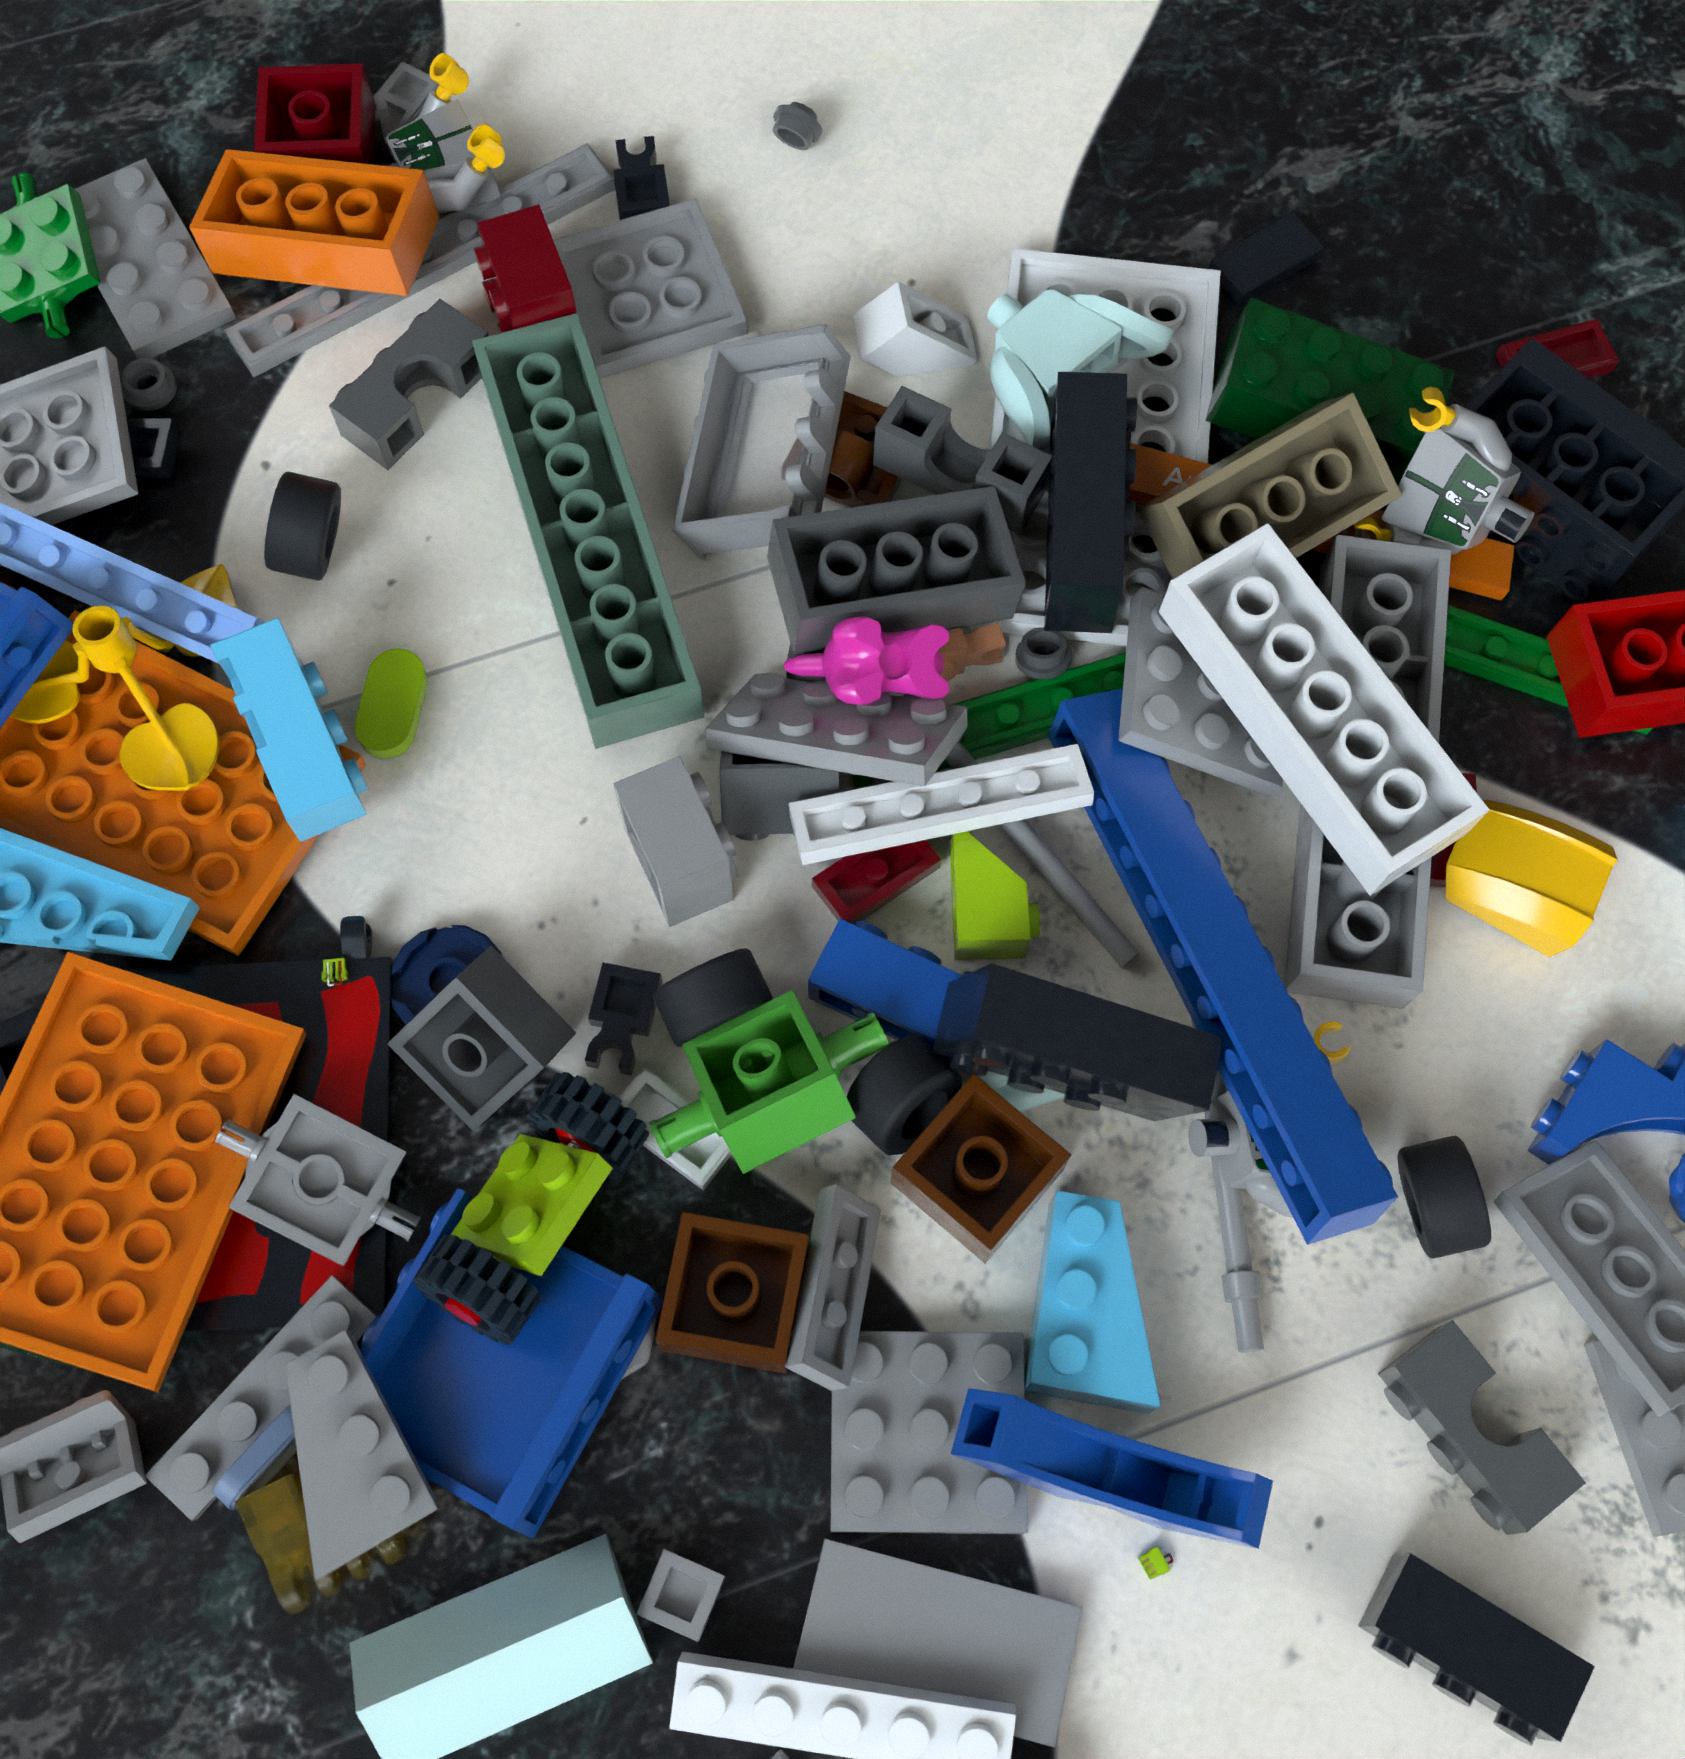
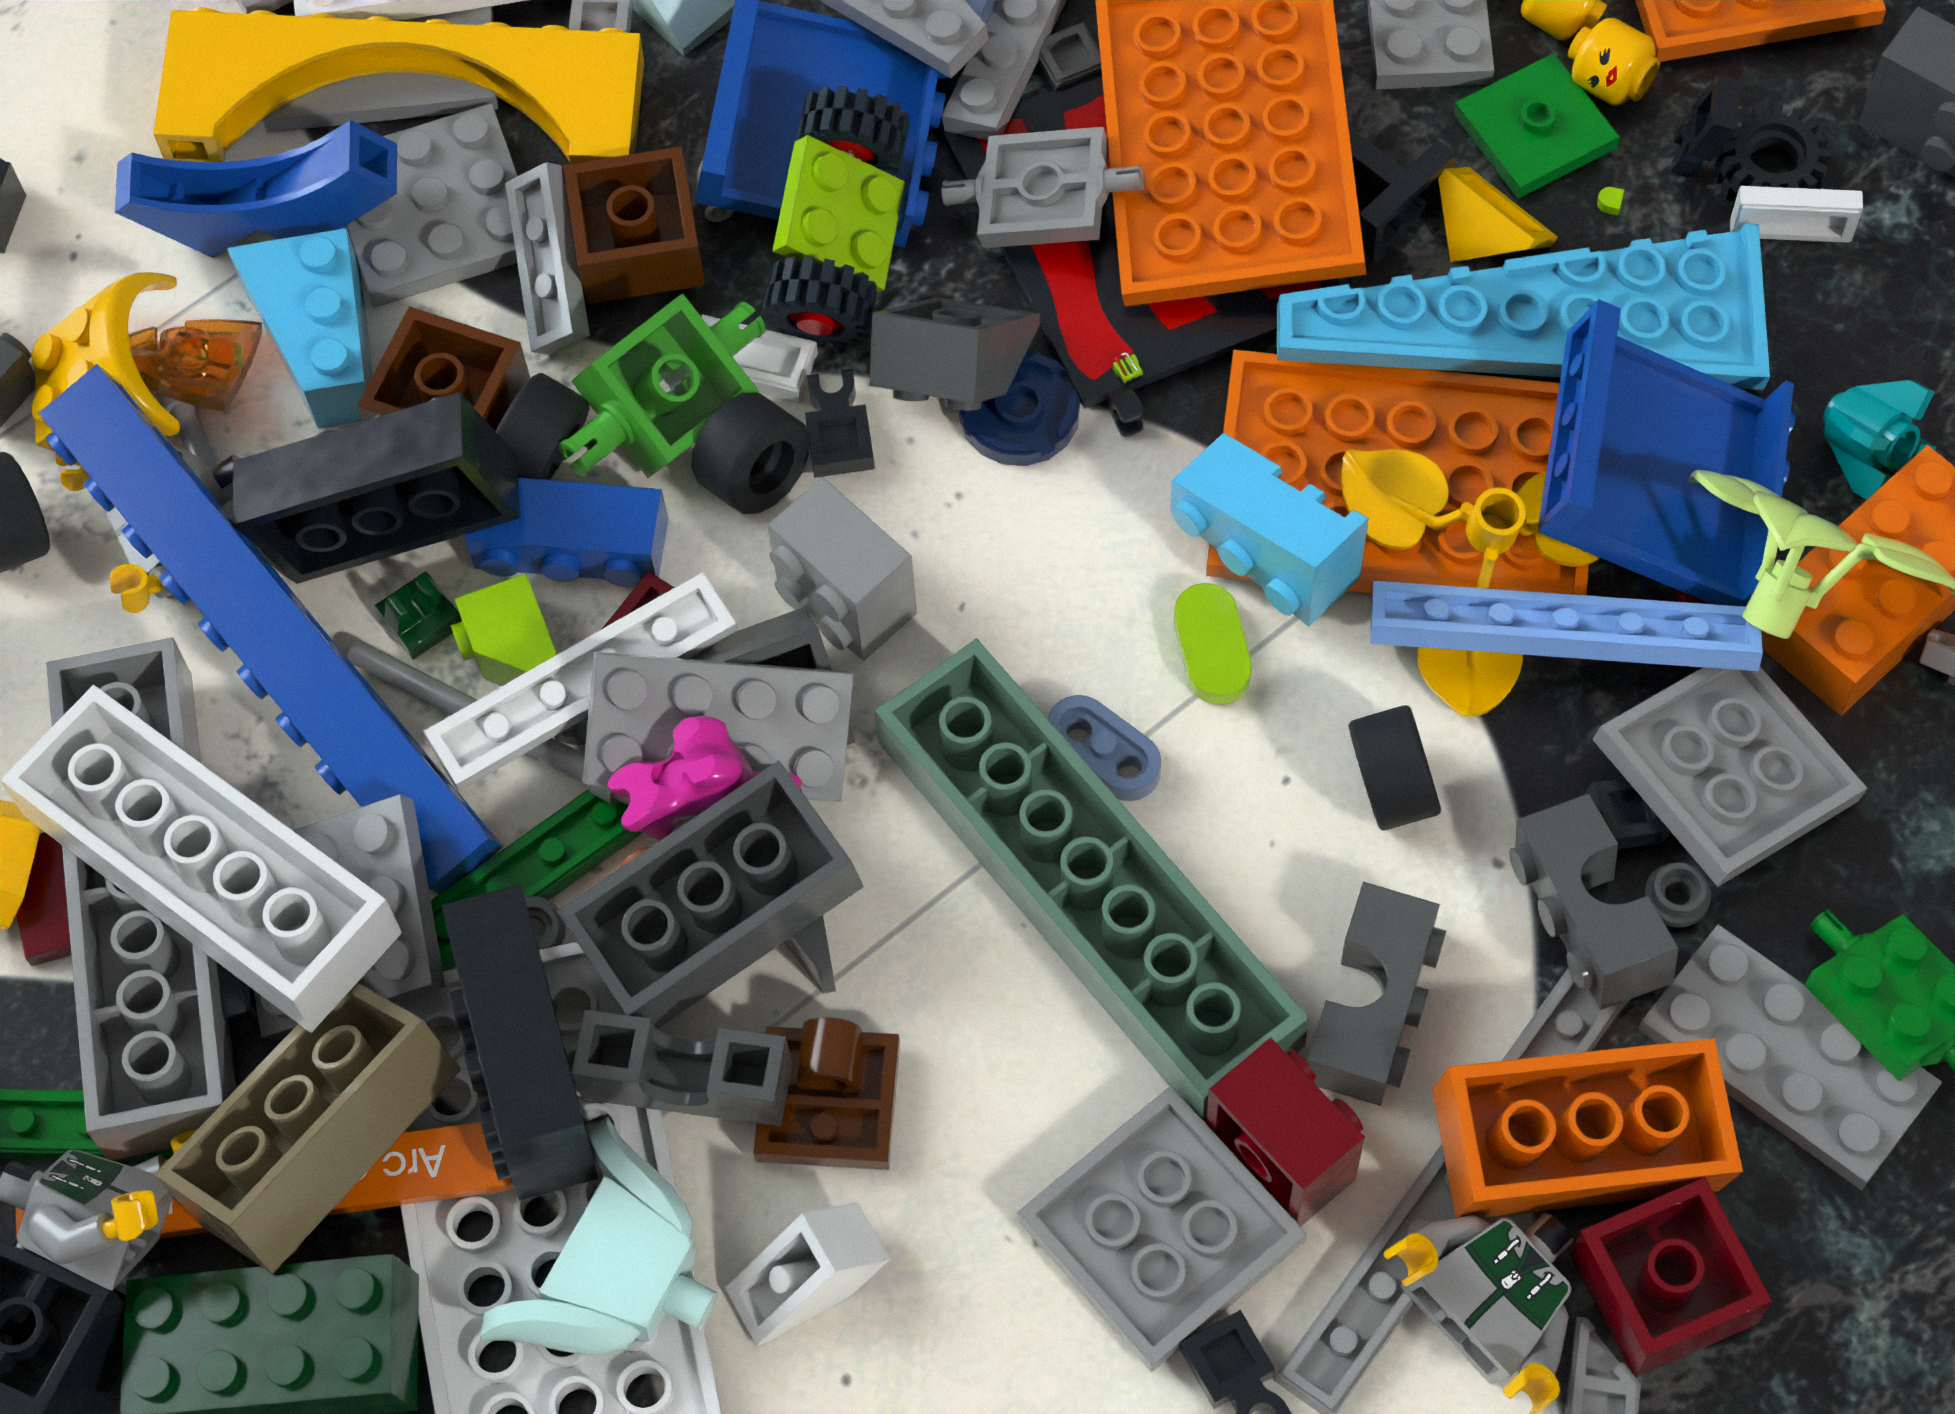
camera: 165 degrees right, 5 degrees down
(215, 1358) = (1069, 56): none -> dark grey tile
(217, 422) = (1609, 946): none -> dark grey arch
(526, 643) = (1109, 746): none -> sand blue plate
(761, 438) = (927, 1035): window -> none
(1066, 965) = (418, 615): none -> dark green tile
(1097, 1661) = (238, 68): none -> yellow arch
(1223, 1311) = (197, 361): none -> clear orange brick
(1329, 1332) = (97, 336): none -> yellow piece

